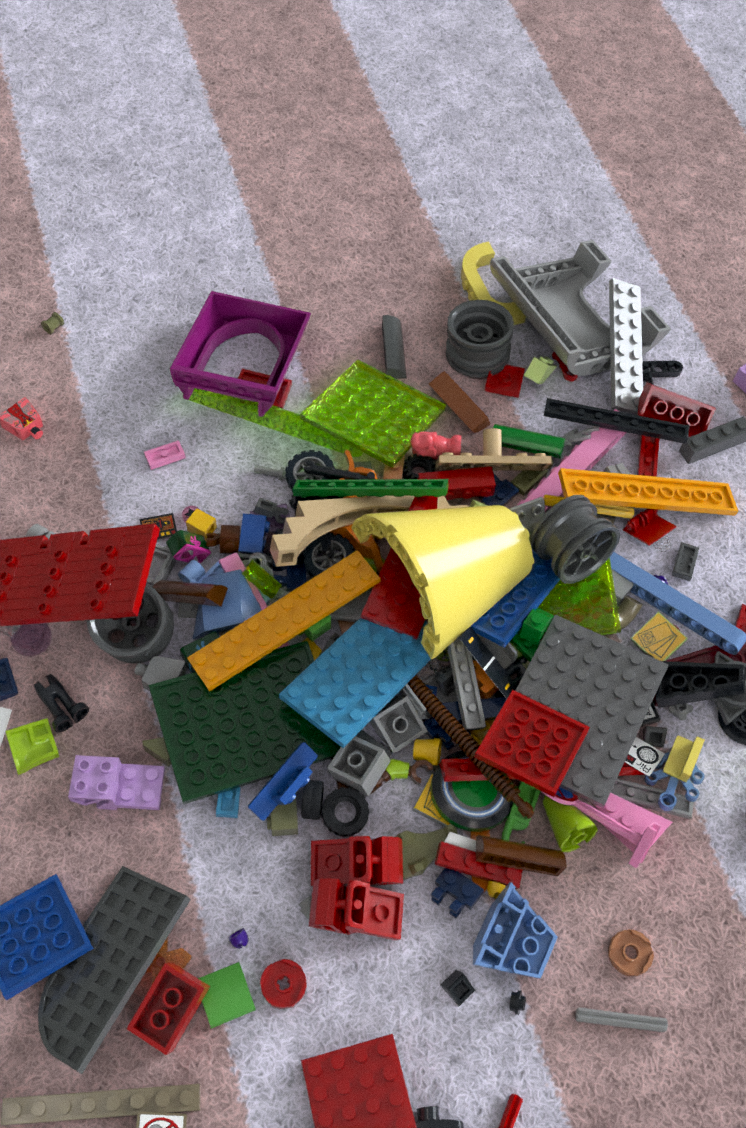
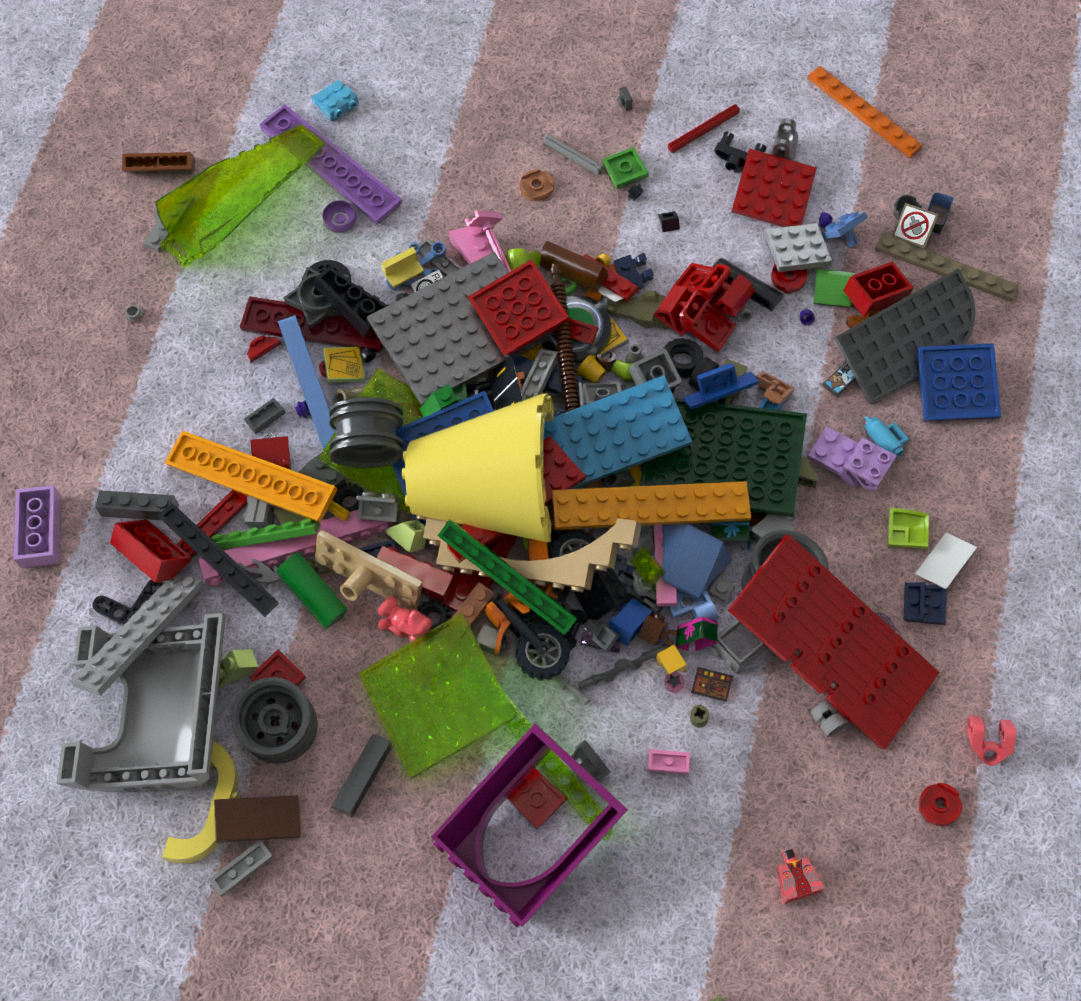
camera: 140 degrees left, 5 degrees up
(56, 690) = (875, 535): black piece -> none
(93, 831) = (884, 437): none -> medium azure piece
(156, 495) = (696, 721): none -> olive bush
(170, 873) = (840, 380): none -> tile
(191, 592) = (716, 575): reddish brown brick -> none
(225, 422) = (590, 761): none -> dark grey piece
(228, 829) = (776, 390): none -> nougat plate
(234, 508) = (621, 665): none -> dark grey piece
(247, 1083) = (844, 227): none -> medium blue plate
(278, 1090) = (825, 219): none -> dark purple hinge
(290, 1025) = (798, 247): none -> light grey plate
(324, 946) = (763, 295): none -> black brick
(394, 793) = (634, 354): none -> light grey cone
(433, 264) = (241, 868): none -> light grey plate
(444, 288) = (256, 818): none -> reddish brown tile
(460, 402) = (342, 672): dark orange brick -> none
(513, 937) = (615, 225): medium blue wedge -> none
(549, 1032) = (625, 167): none -> bright green plate
(601, 454) = (266, 534): none -> bright green plate

